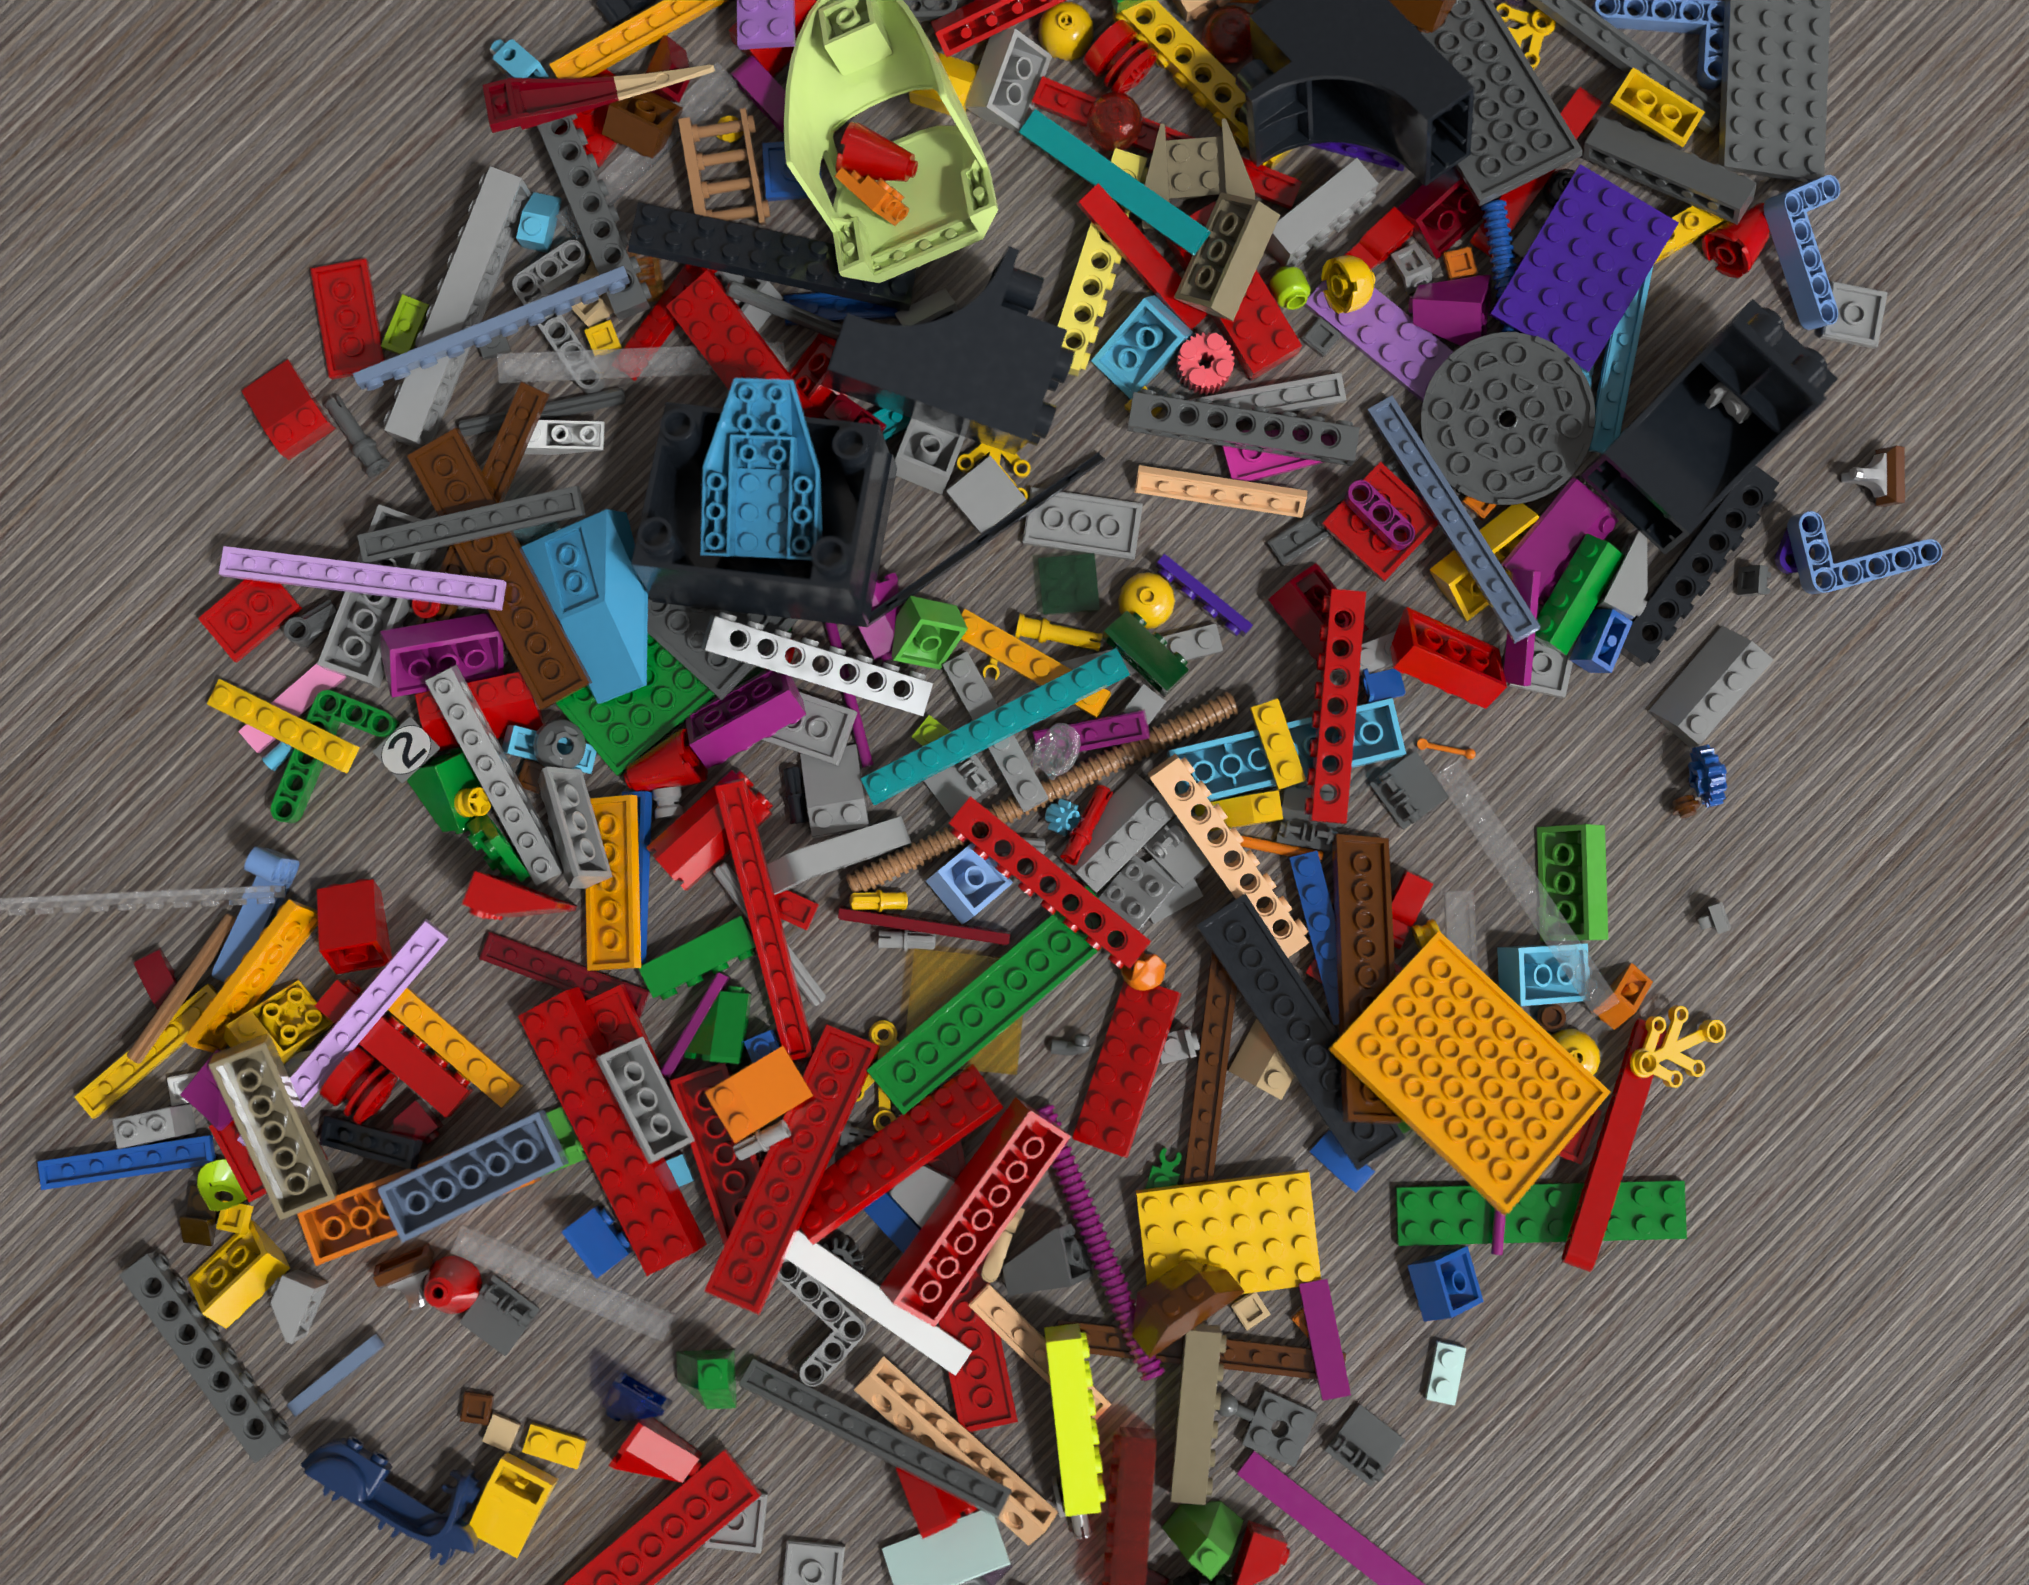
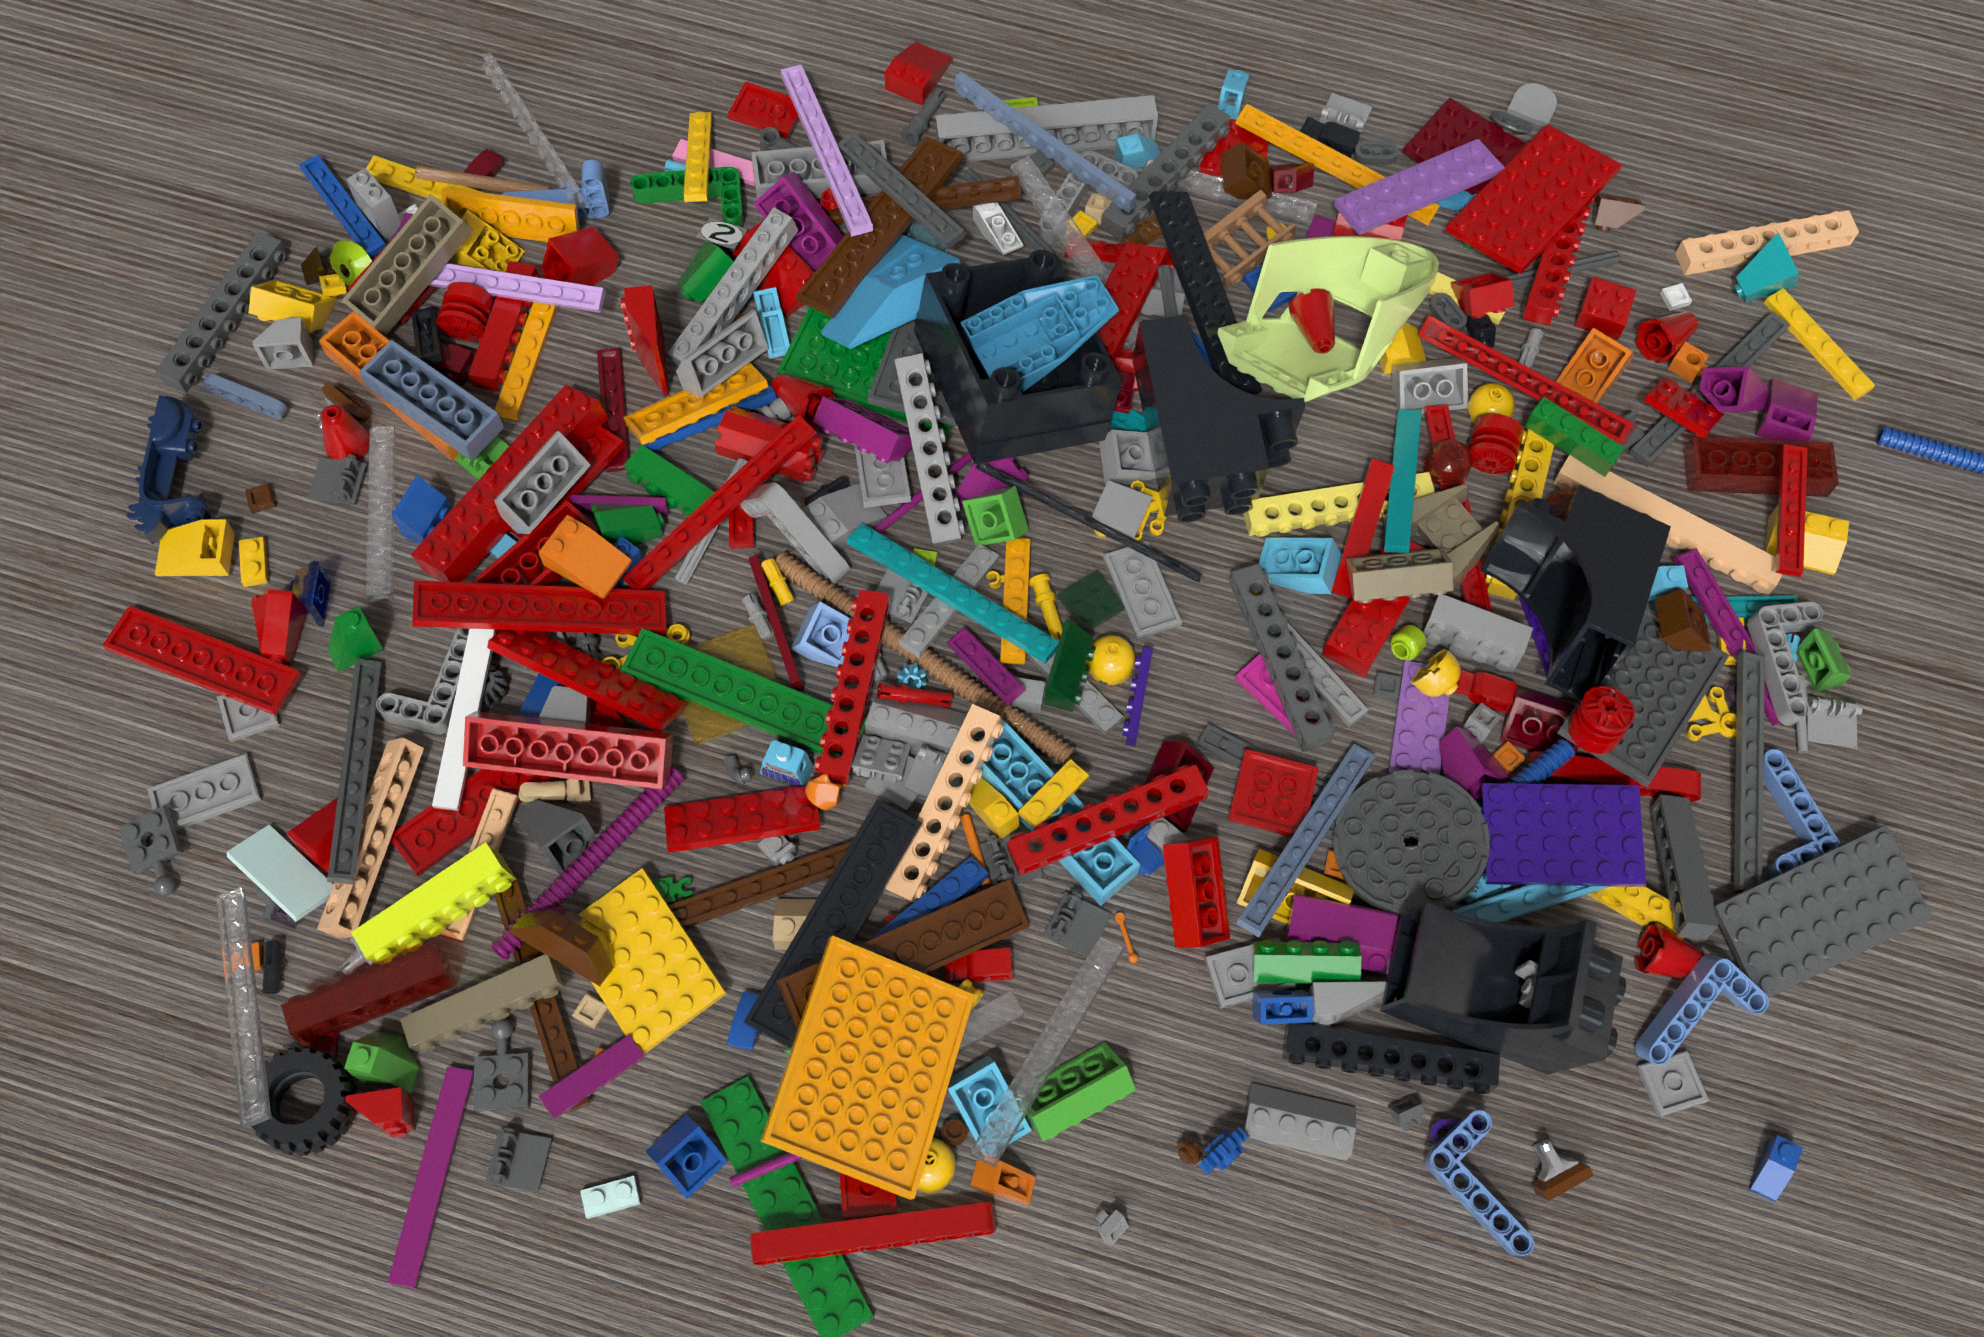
camera: 60 degrees right, 20 degrees down
(347, 317) = (1009, 73): red tile -> none
(477, 796) = (708, 287): yellow wheel -> none
(498, 850) = (684, 309): green plate -> none
(501, 1432) = (248, 522): tan tile -> none
(539, 101) = (1215, 99): dark red plate -> none
(546, 744) = (781, 335): dark grey piece -> none
(762, 1140) = (551, 577): light grey axle -> none
(876, 195) = (1288, 329): orange plate -> none
(1057, 750) = (958, 645): clear hat -> none
(1093, 994) = (784, 764): none -> medium azure torso
(1209, 348) = (1313, 610): coral brick -> none
(1220, 491) = (1225, 670): light nougat tile -> none
(1384, 529) = (1277, 771): magenta beam -> none
(1501, 158) = (1601, 720): none -> red wheel
(1520, 655) = (1244, 939): magenta tile -> none
(1656, 109) = (1723, 835): yellow slope -> none
(1672, 1047) = (979, 1240): yellow plant -> none
(1978, 273) = (1775, 1167): none -> blue slope

